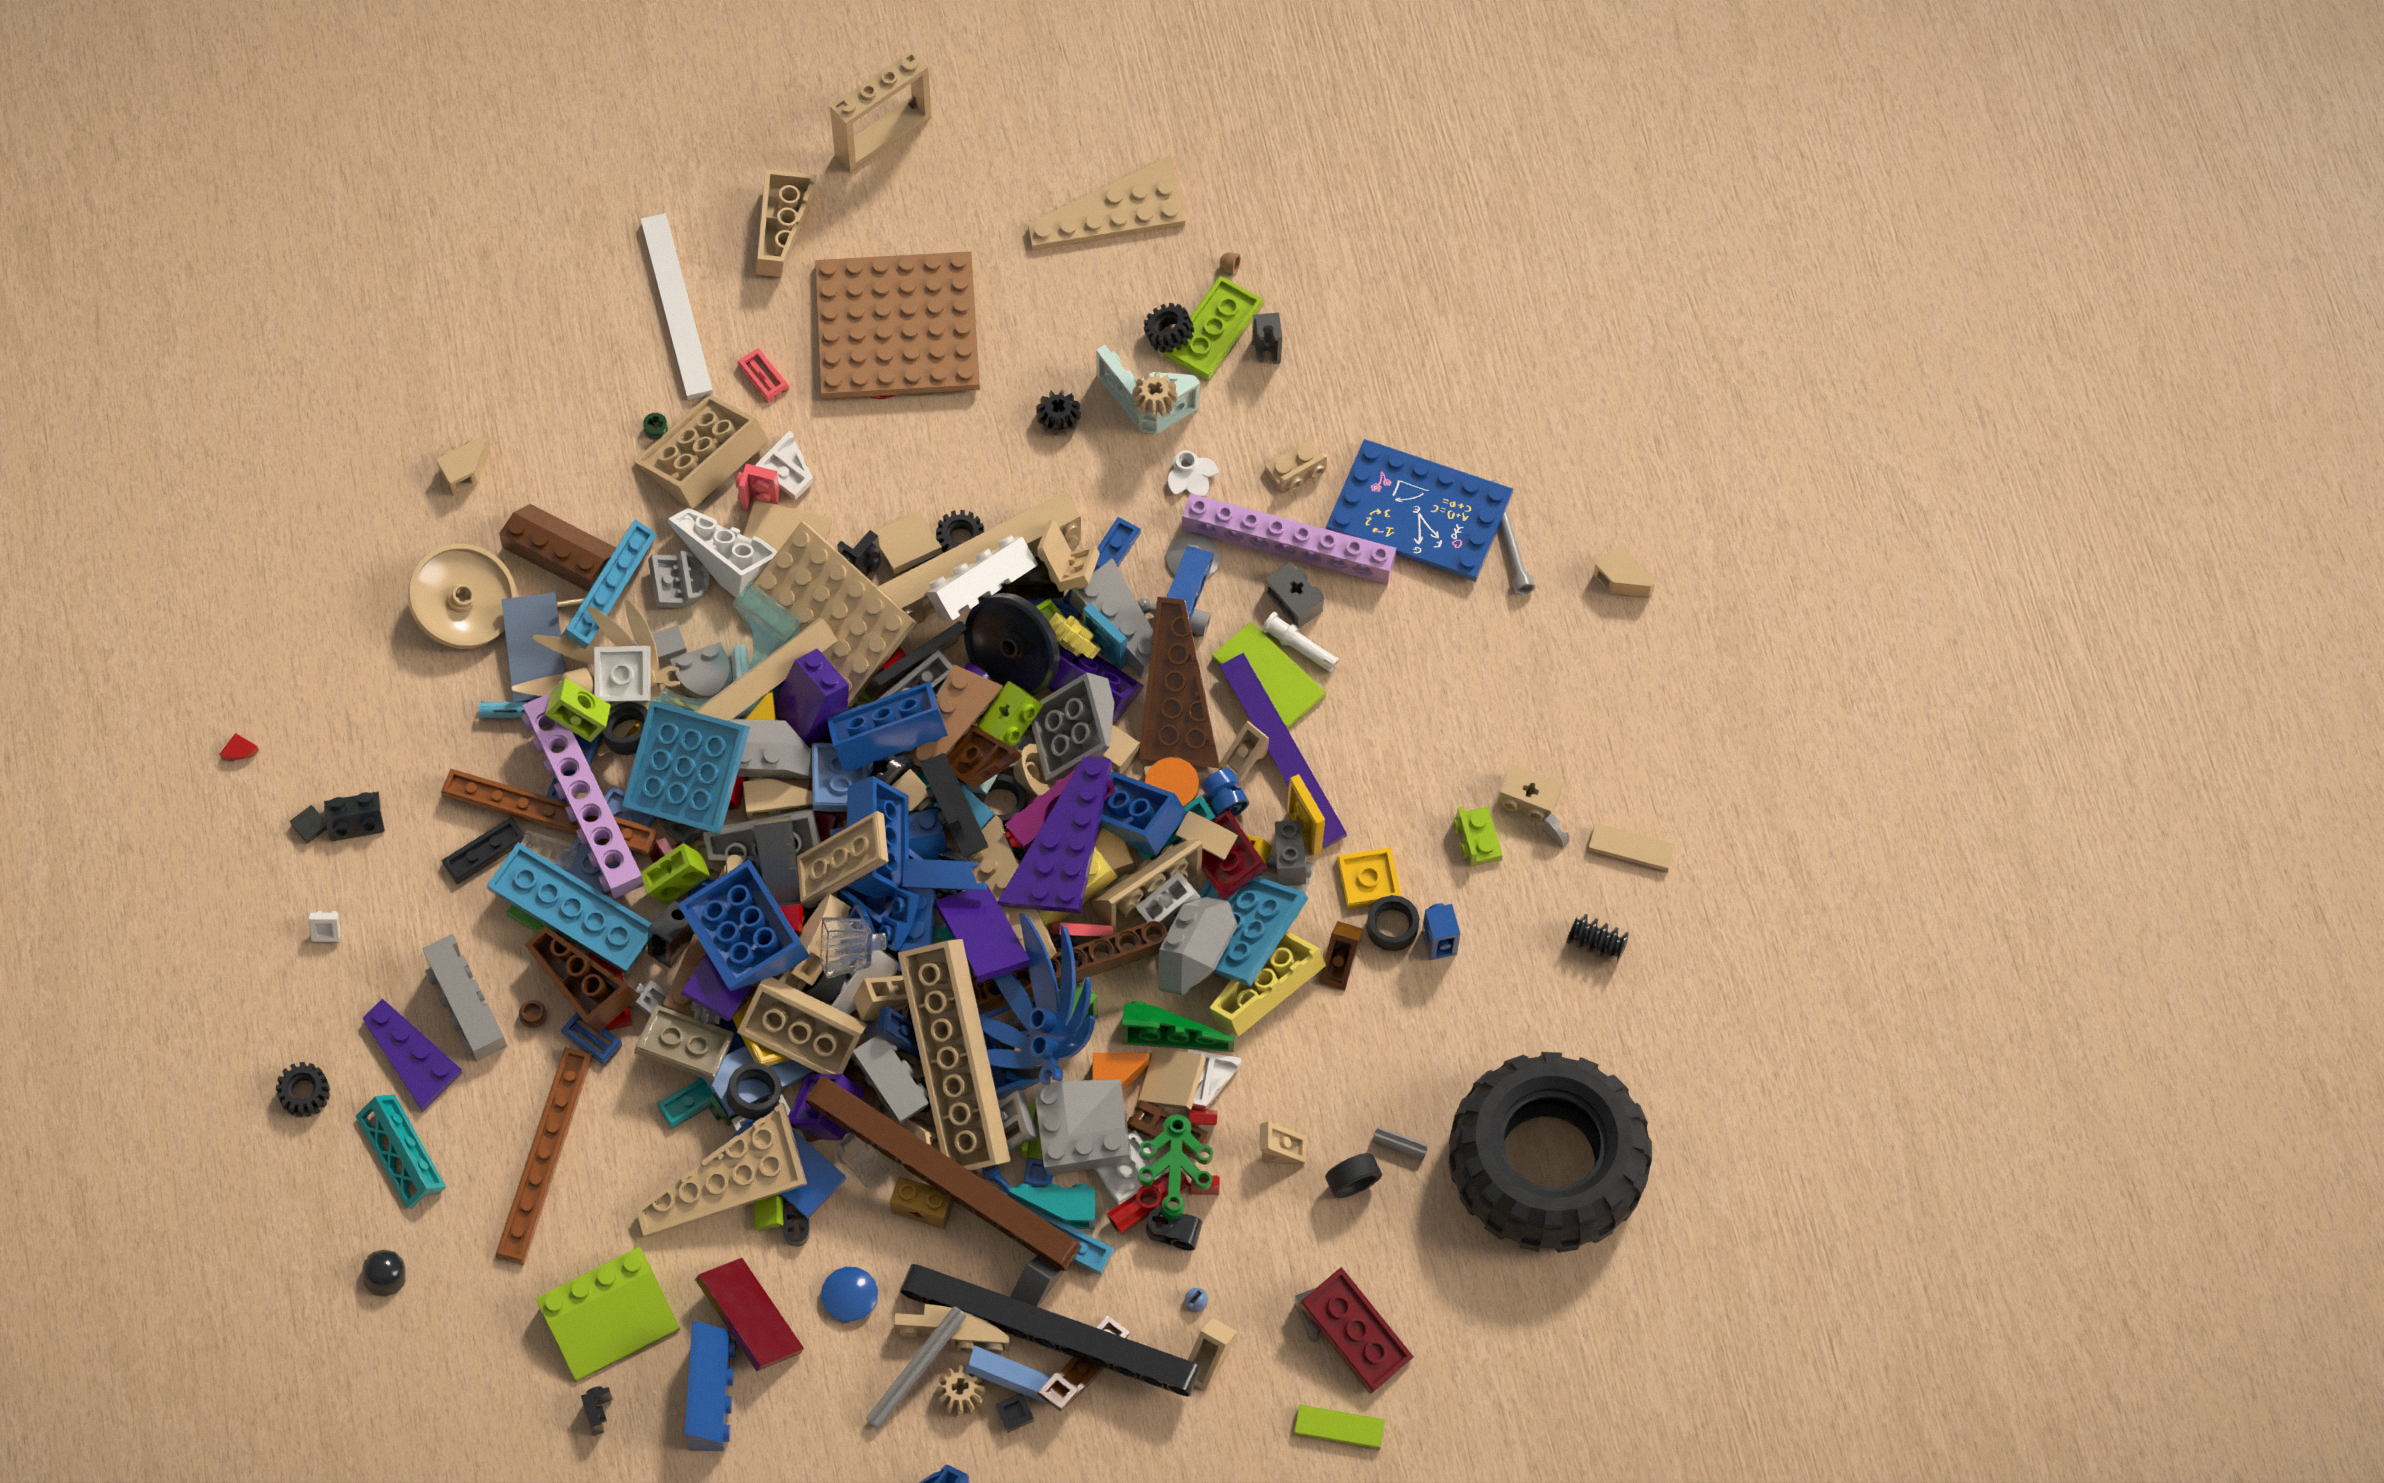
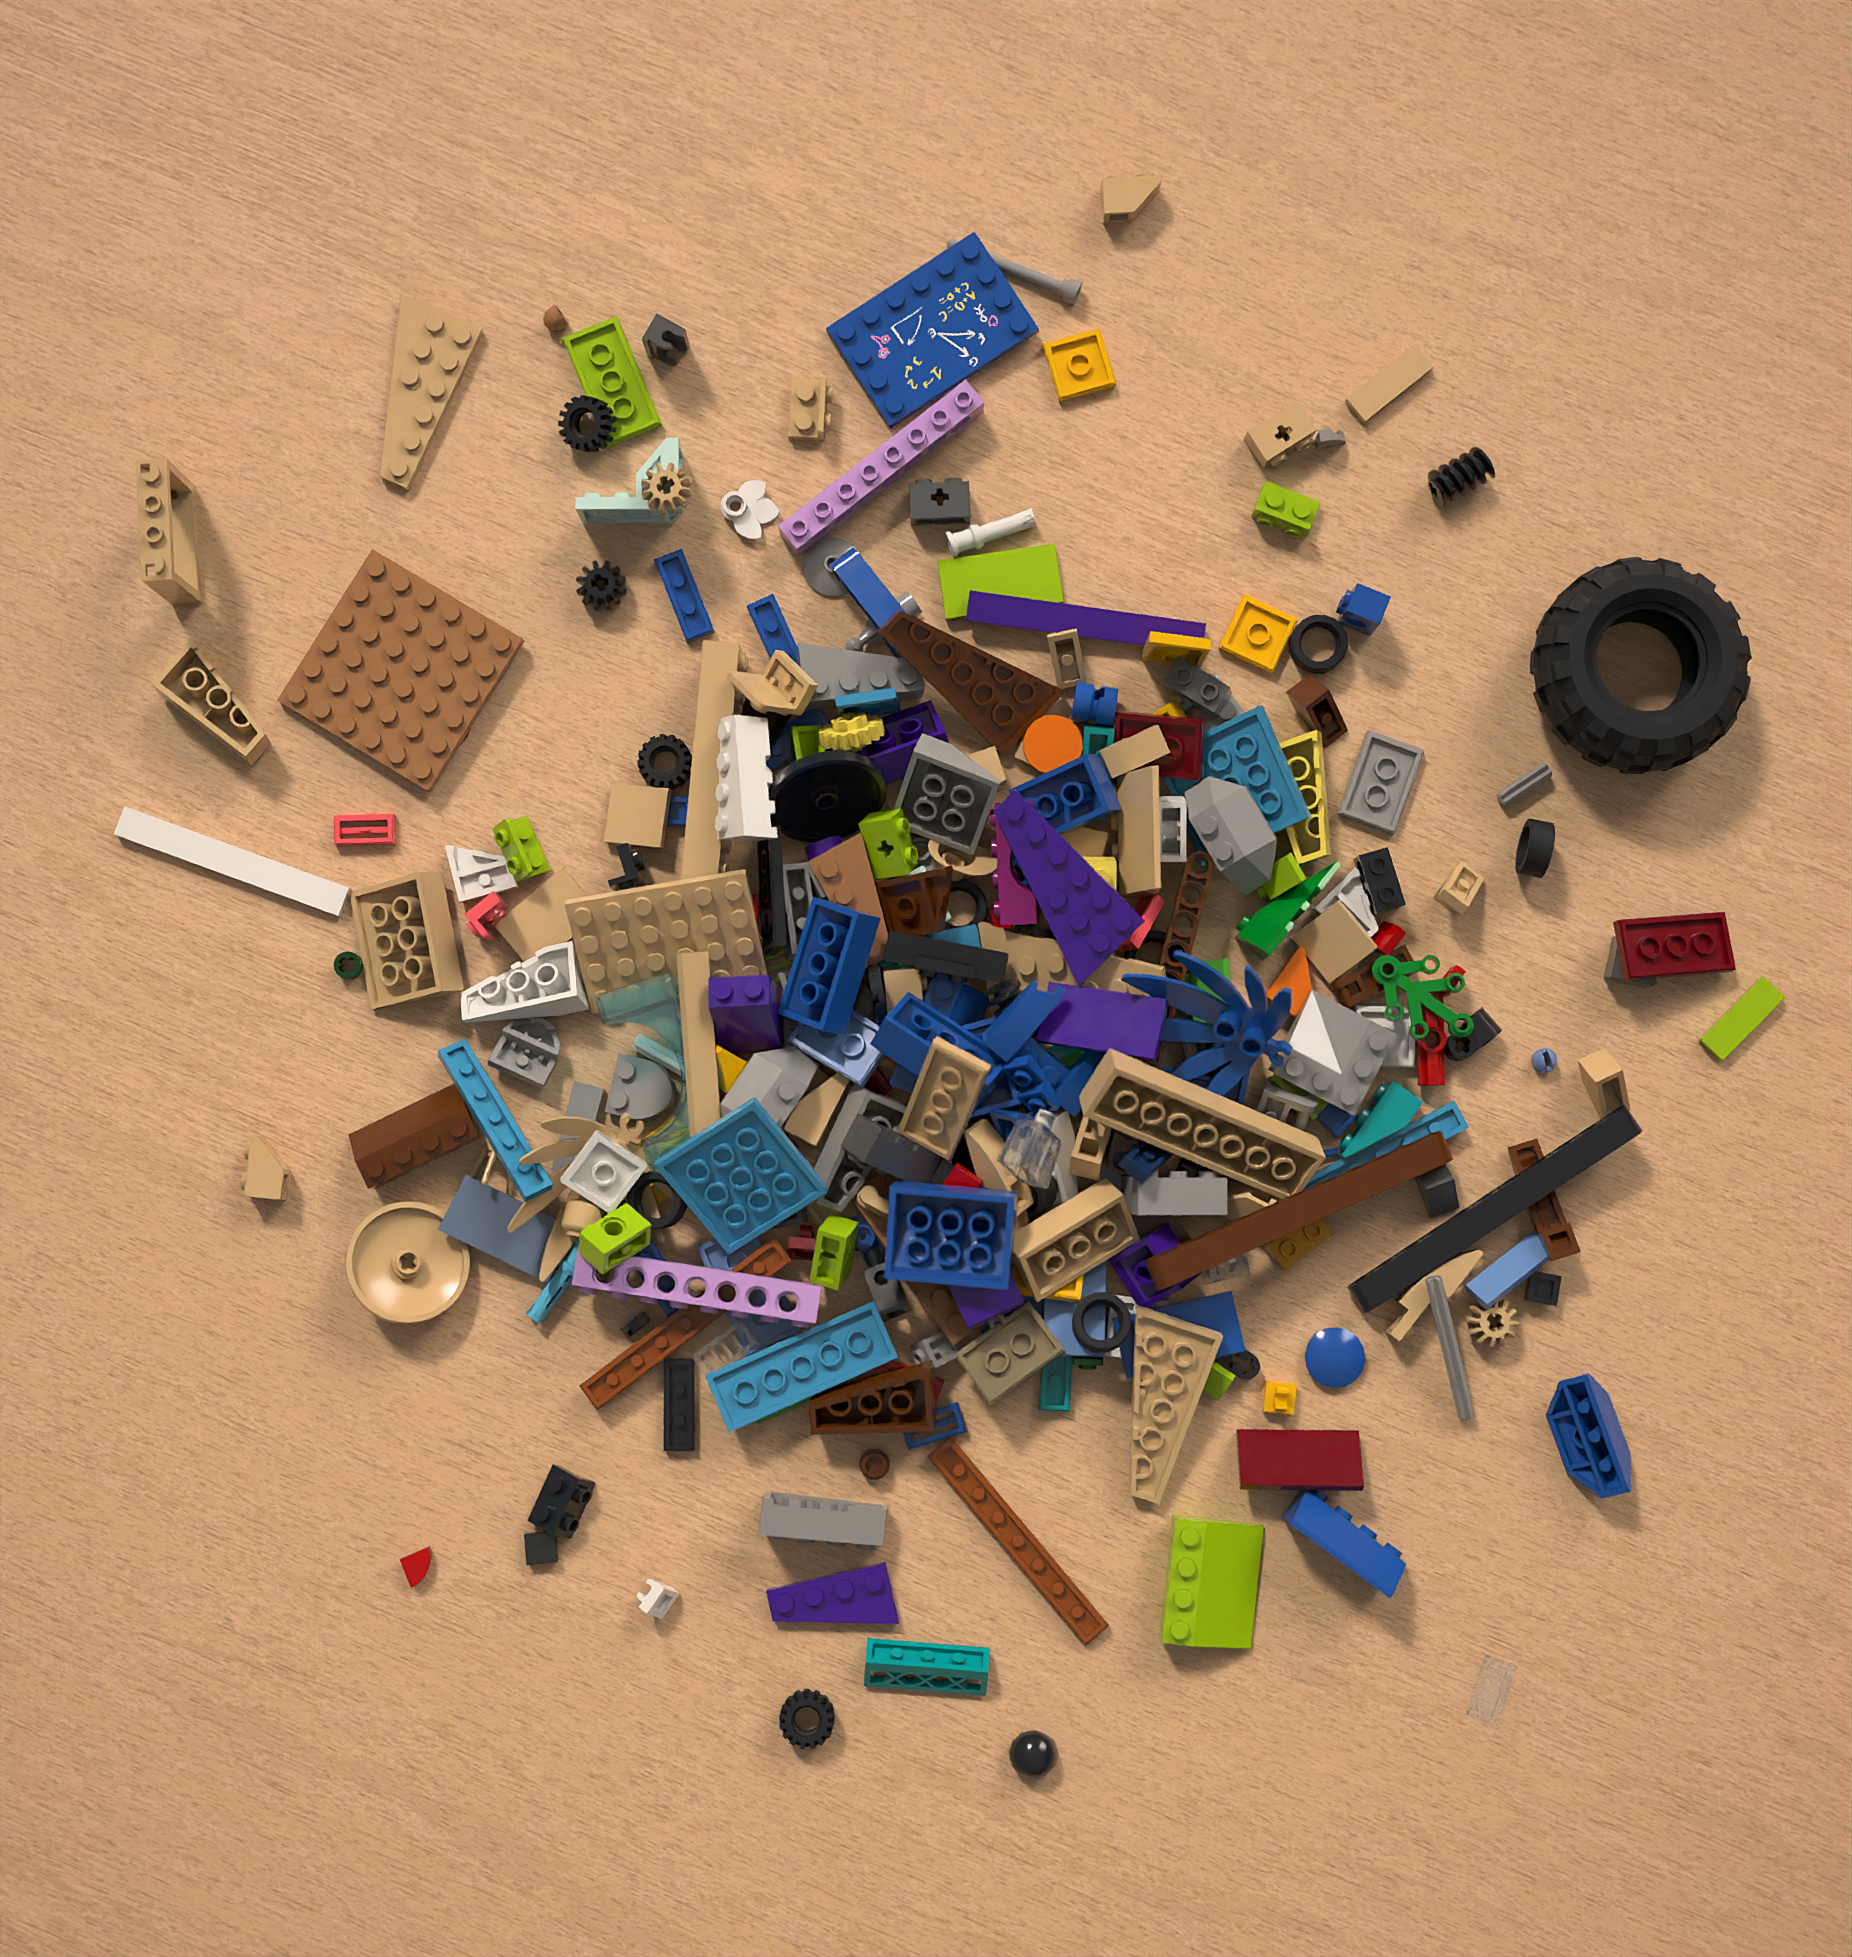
camera: 55 degrees left, 20 degrees up
(524, 780) = (635, 1324): none -> black tile
(596, 1414) = (1295, 1654): black bracket -> none
(789, 1274) = (1279, 1397): none -> yellow tile
(824, 480) = (520, 849): none -> lime bracket
(1095, 472) = (684, 596): none -> blue tile
(1193, 1005) = (1285, 877): none -> lime slope
(1243, 1082) = (1379, 881): none -> black brick
(1322, 1038) = (1380, 782): none -> light grey tile
(1473, 625) = (1079, 365): none -> yellow tile

